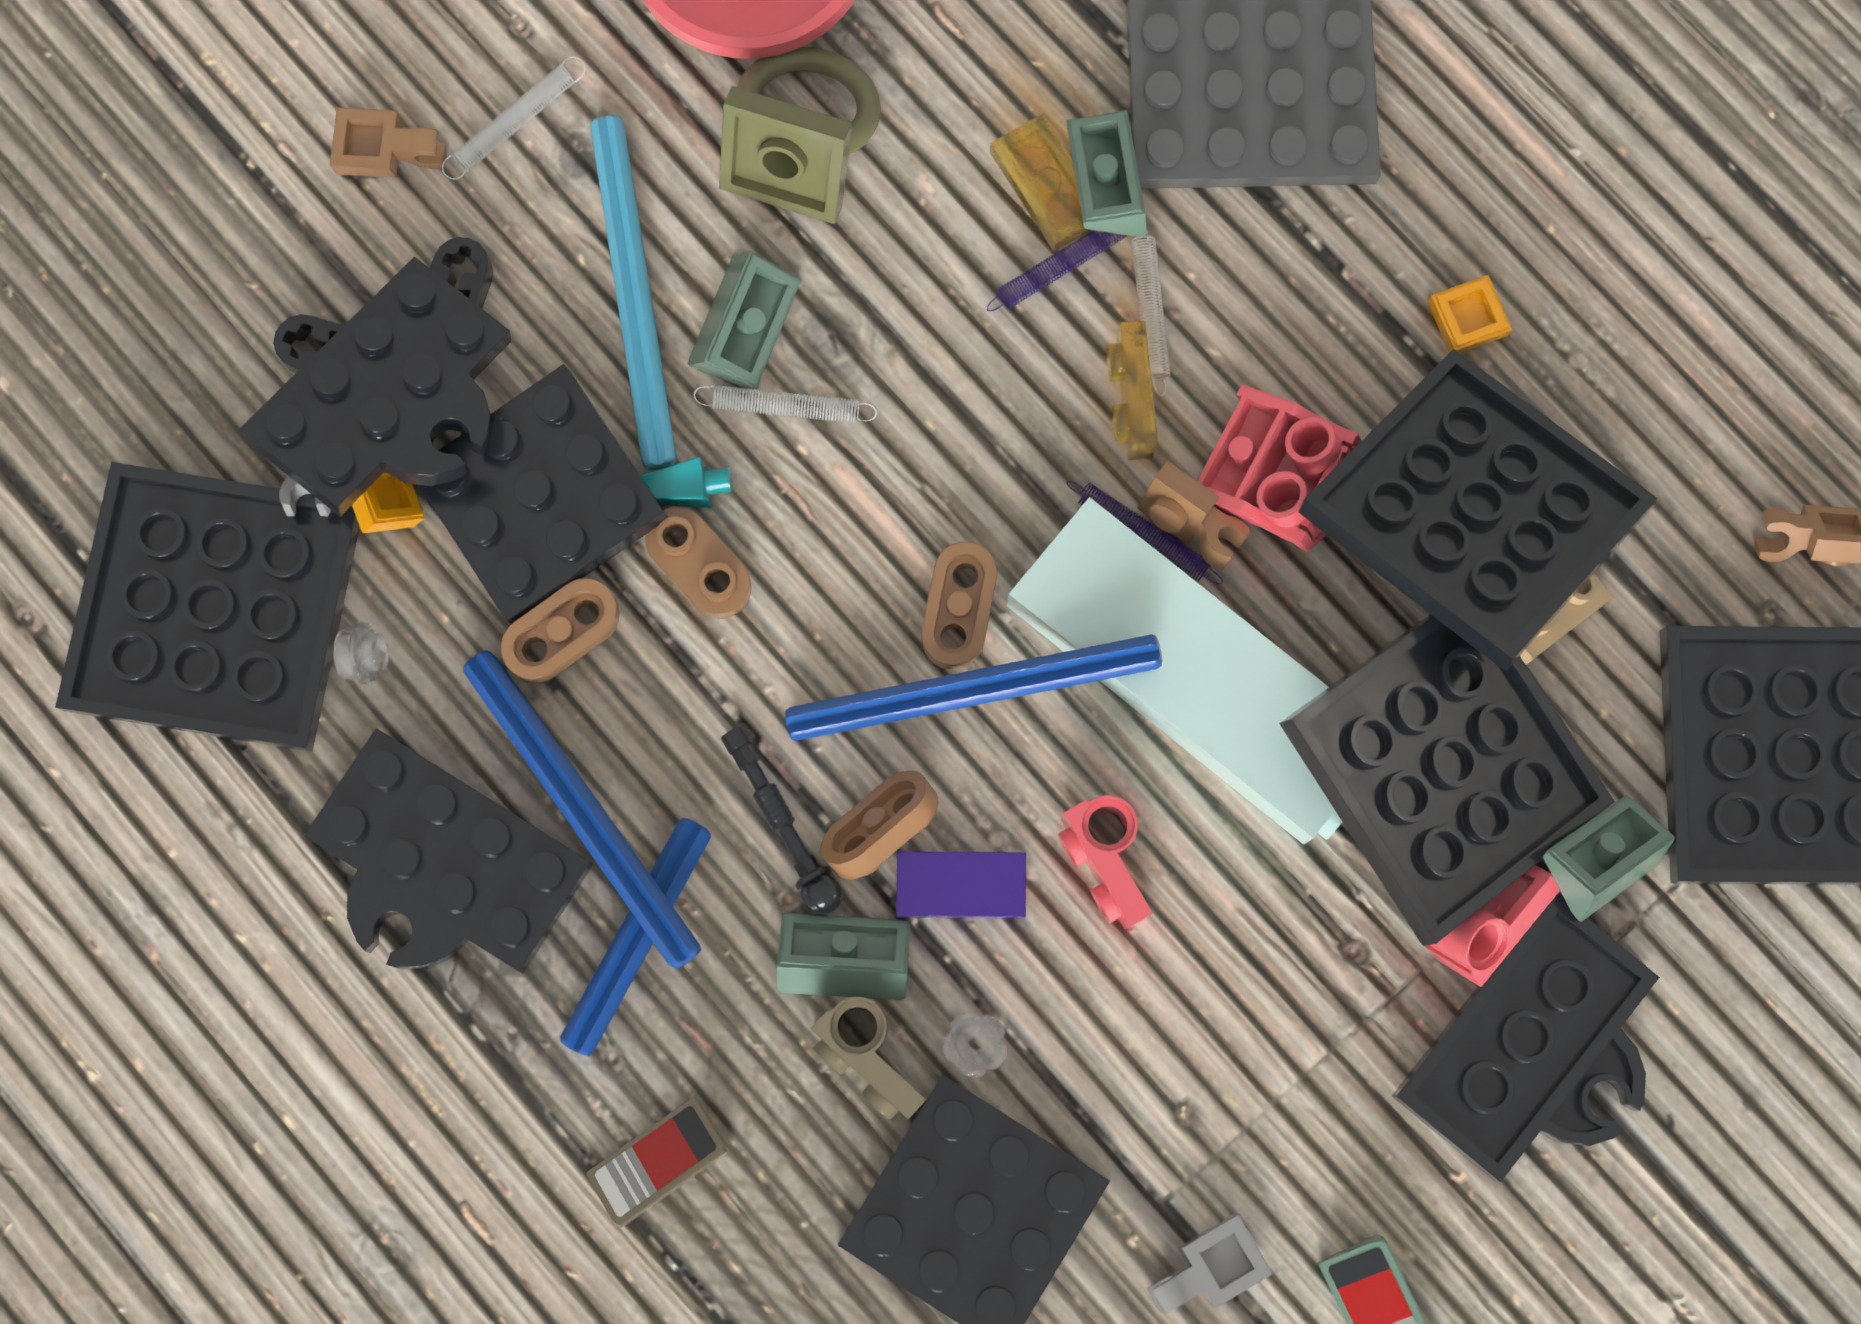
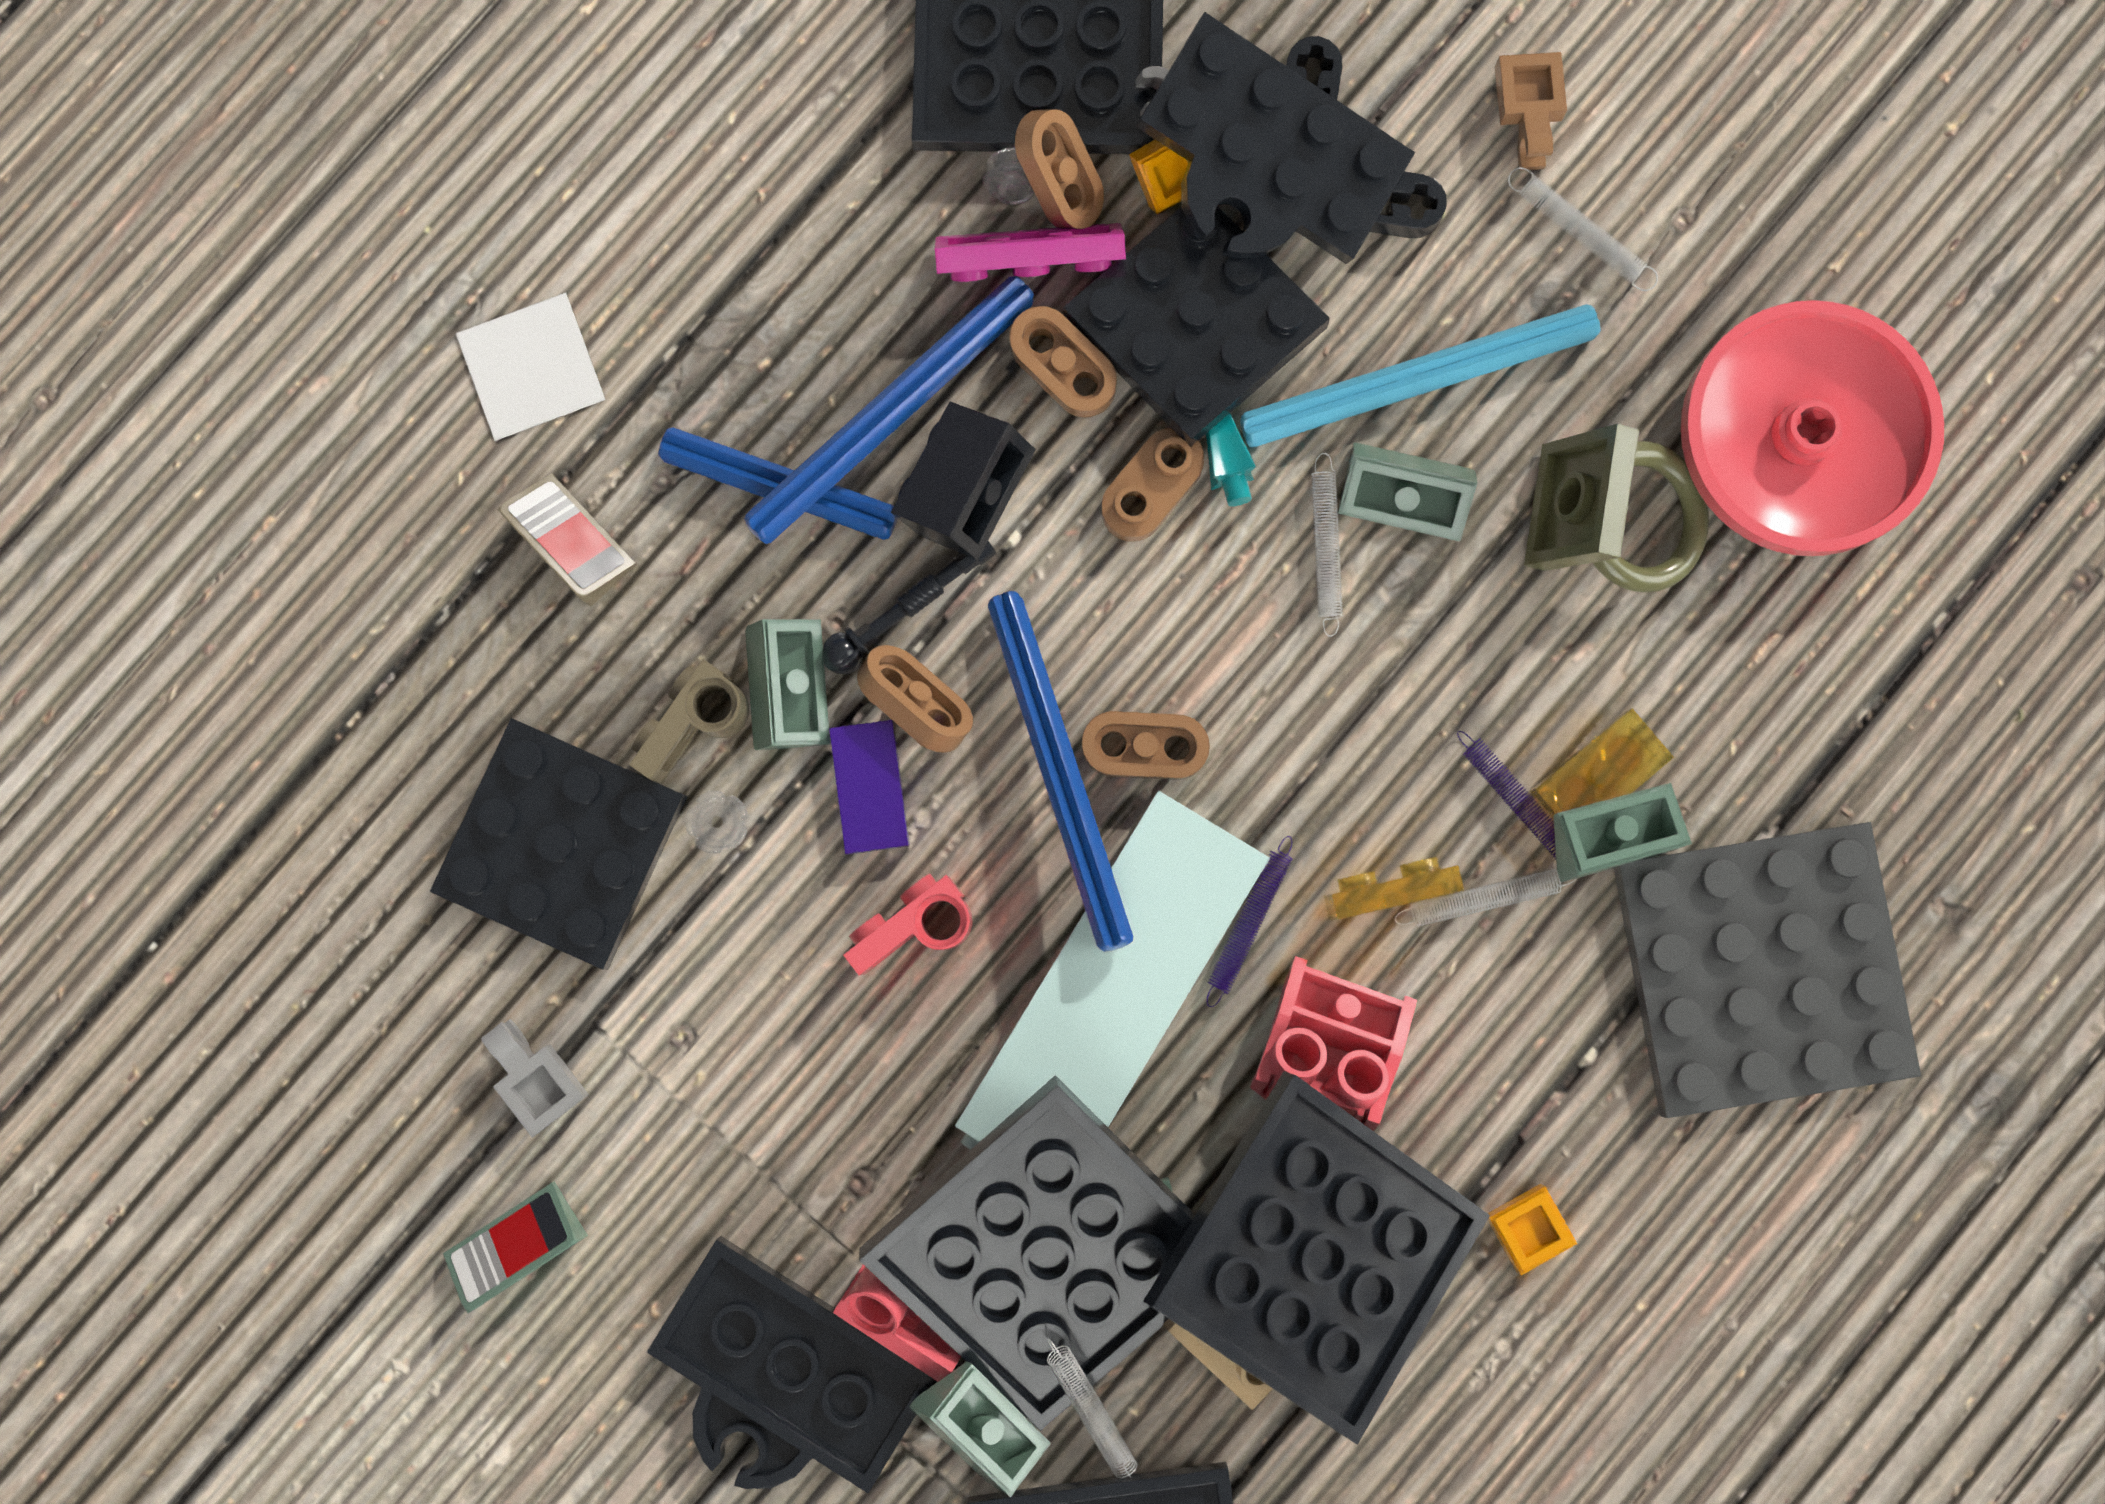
camera: 85 degrees right, 5 degrees up
(365, 602) = (1059, 164): none -> medium nougat plate
(441, 646) = (1029, 251): none -> dark pink plate
(442, 860) = (826, 289): black plate -> none
(467, 1183) = (530, 366): none -> white sticker
(666, 744) = (963, 480): none -> black brick
(1187, 510) = (1275, 962): medium nougat plate -> none
(1608, 743) = (1097, 1442): none -> white piece

